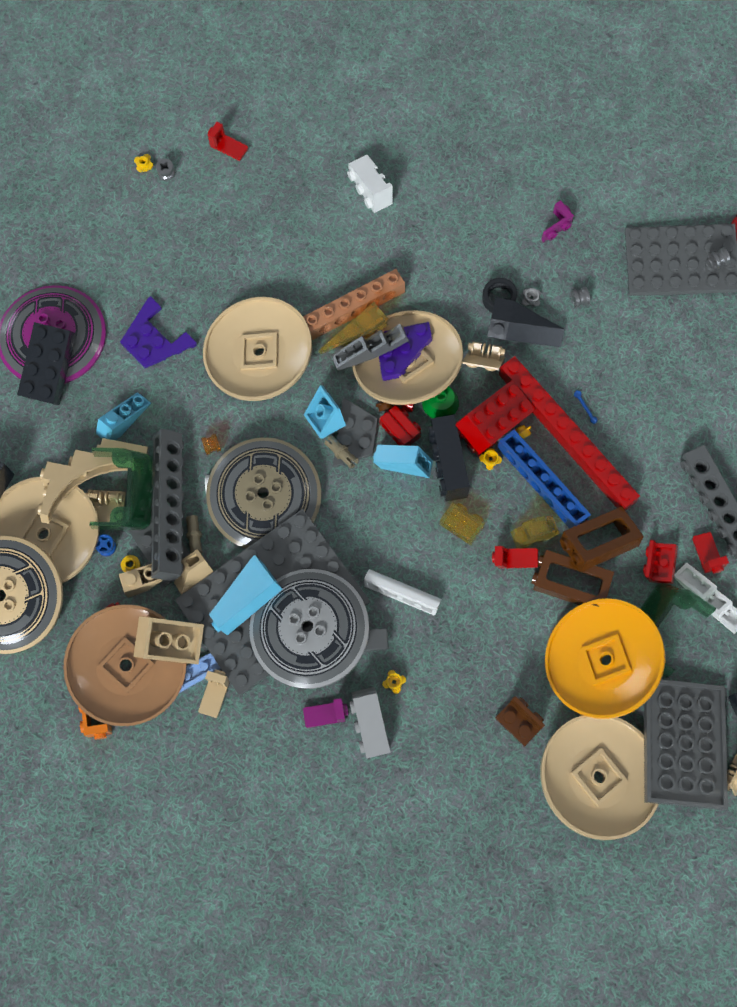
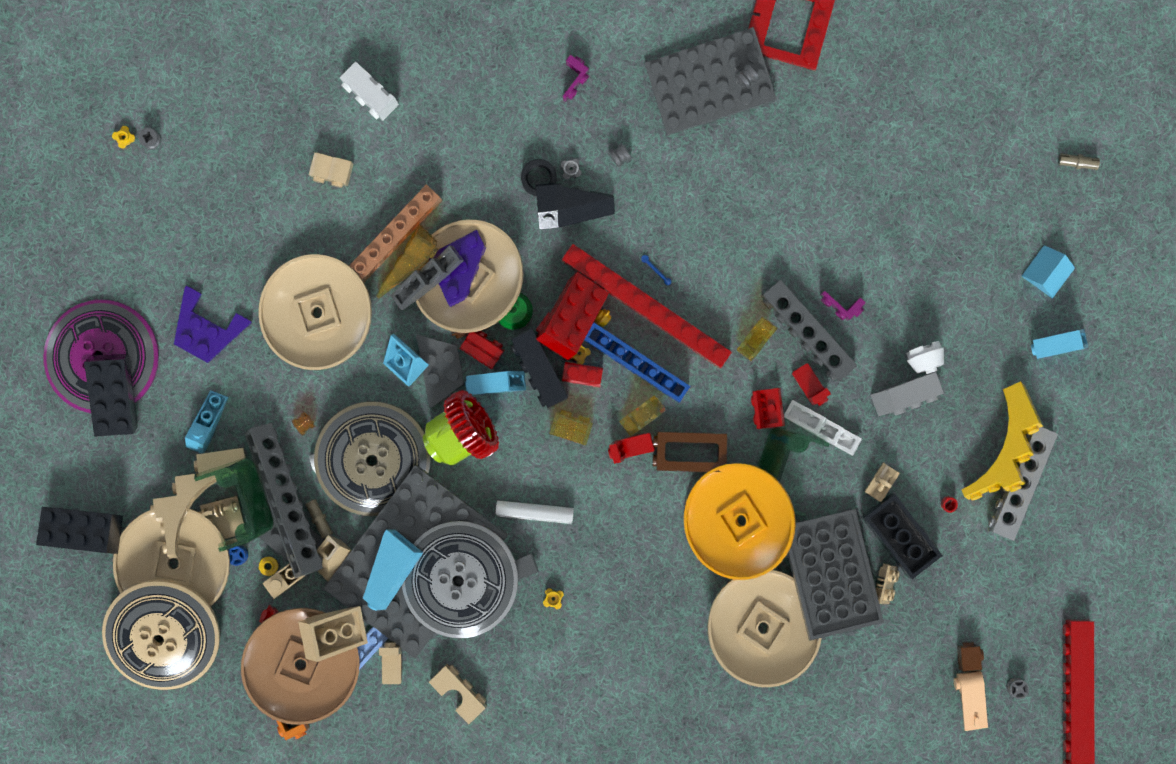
camera: 25 degrees left, 15 degrees up
(224, 143) = (203, 89): red bracket -> none
(264, 728) = (447, 680): none -> tan arch
(313, 236) = (330, 169): none -> tan brick
(325, 714) = (499, 649): magenta bracket -> none
(341, 452) = (431, 392): dark tan pin -> none
(355, 489) = (460, 431): none -> red piece
(369, 722) = (542, 644): light grey wedge -> none
(488, 477) = (582, 374): none -> red brick
(489, 361) = (542, 254): tan hinge -> none
(520, 720) = (678, 601): reddish brown bracket -> none
(586, 559) = (697, 433): reddish brown piece -> none
(667, 492) = (756, 338): none -> clear yellow brick

